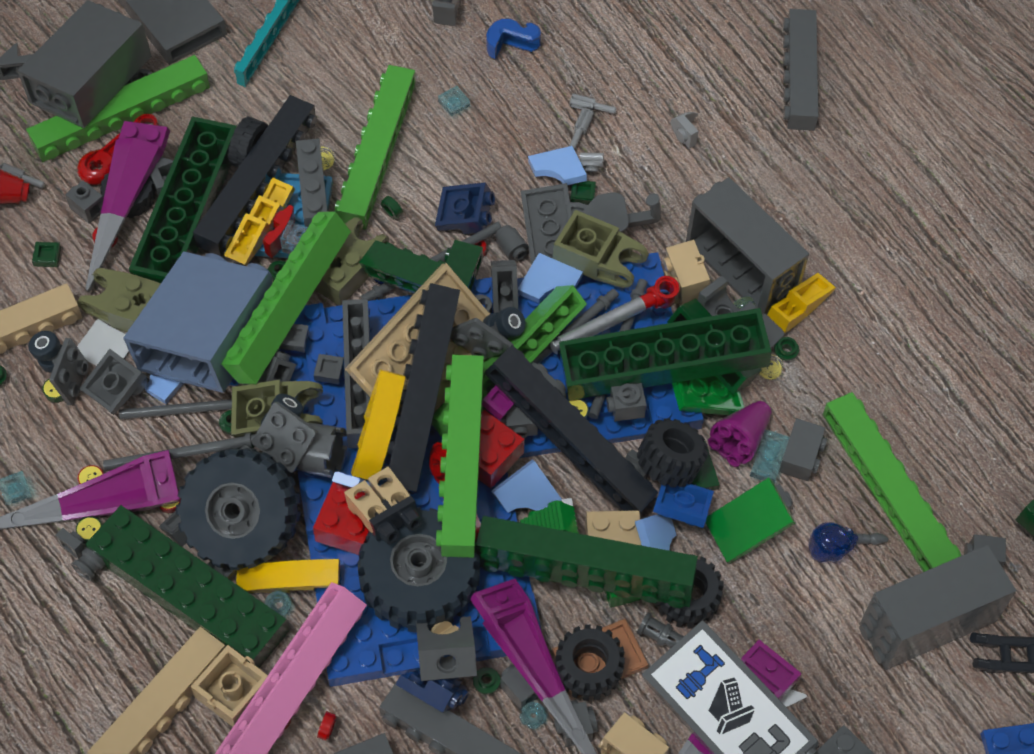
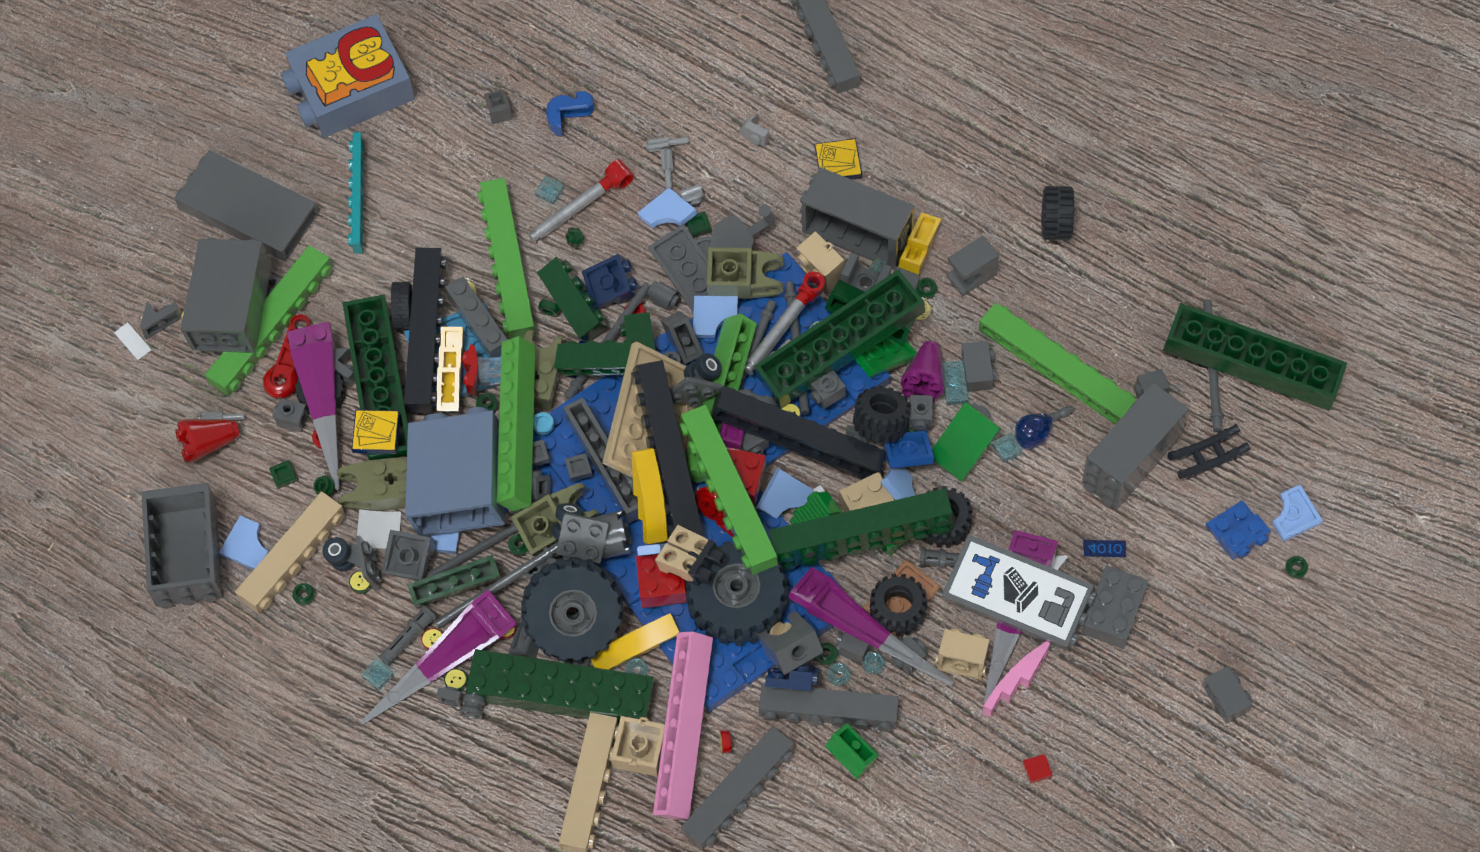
camera: 20 degrees left, 5 degrees up
(76, 280) = (321, 482): none -> dark green plate
(78, 458) = (414, 627): none -> dark grey pin
(142, 428) = (454, 581): none -> dark green brick
(149, 247) = (375, 431): none -> yellow tile
(319, 311) = (543, 423): none -> medium azure tile
(418, 208) = (572, 299): none -> dark green brick
(453, 153) = (574, 237): none -> dark green plate
(489, 701) = (838, 667): none -> clear light blue plate
(526, 114) = (615, 176): none -> flat silver piece
(716, 469) = (921, 412): none -> dark grey brick
(761, 186) = (839, 157): none -> yellow tile
(794, 548) = (1007, 447): none -> clear light blue plate
(846, 345) = (973, 266): none -> dark grey piece
(853, 706) = (1104, 548): none -> clear blue sticker
(962, 329) = (1057, 213): none -> black tyre

